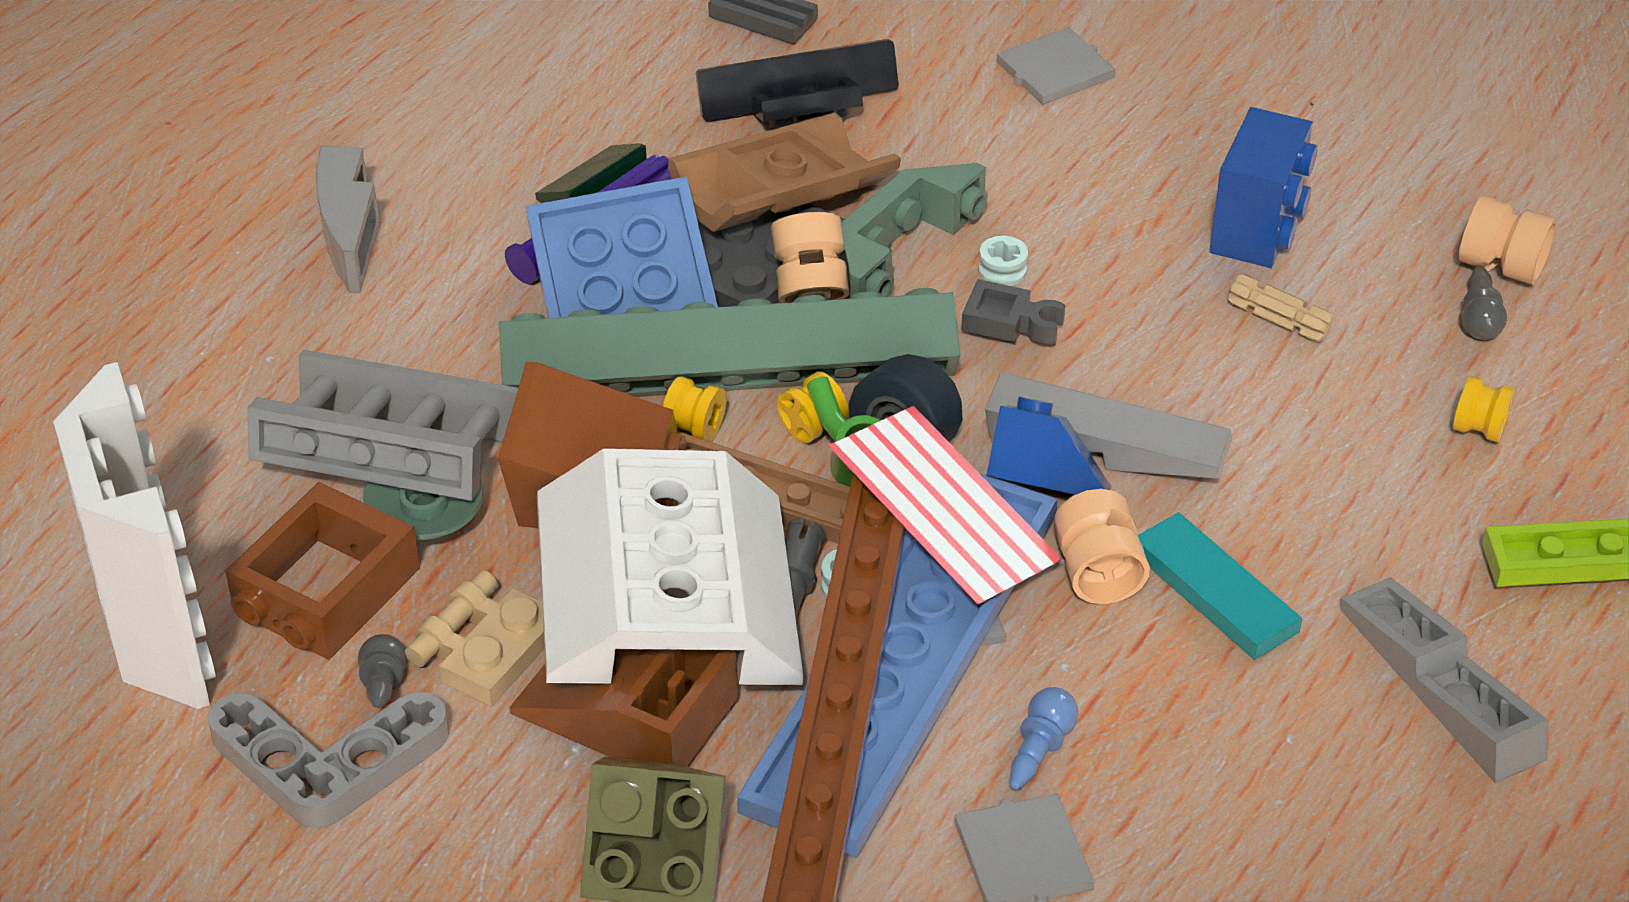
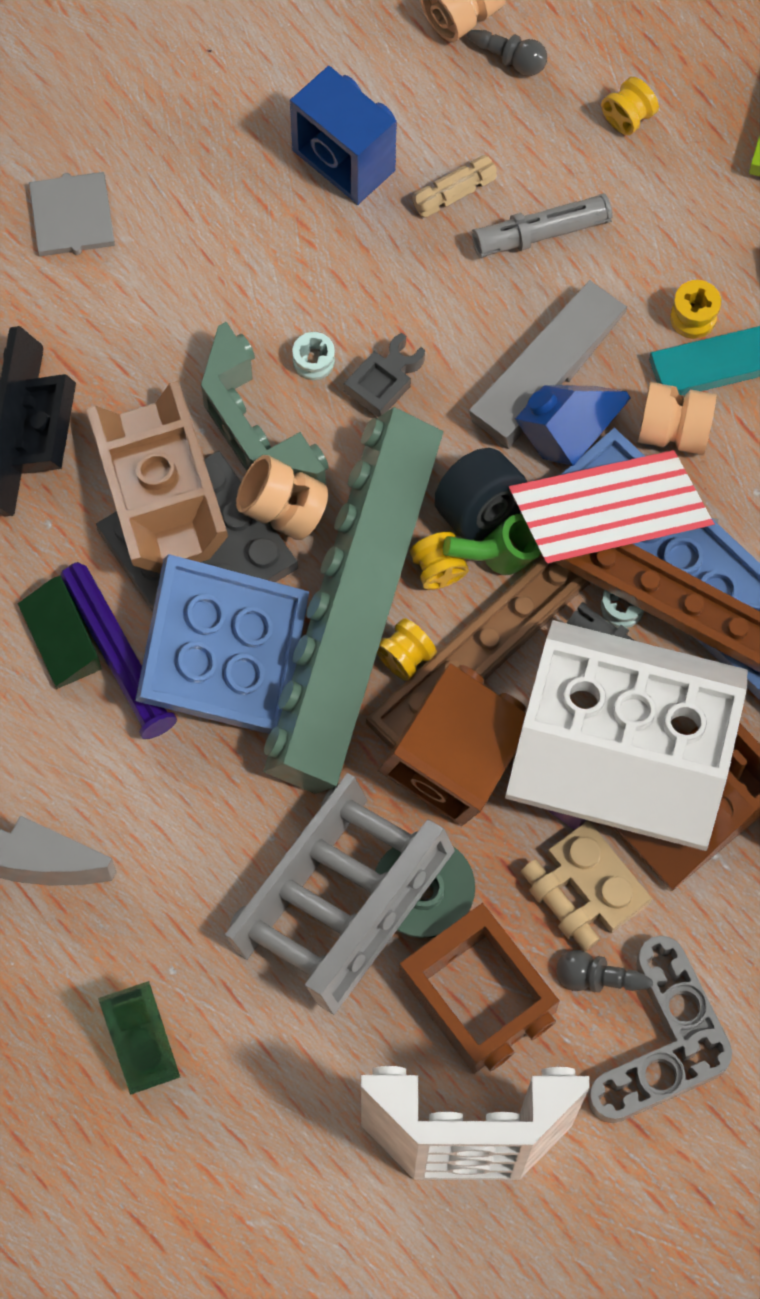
camera: 70 degrees left, 25 degrees up
(185, 318) = (139, 1037): none -> clear green slope
(1261, 370) = (524, 230): none -> light grey pin
(1261, 535) = (695, 321): none -> yellow wheel

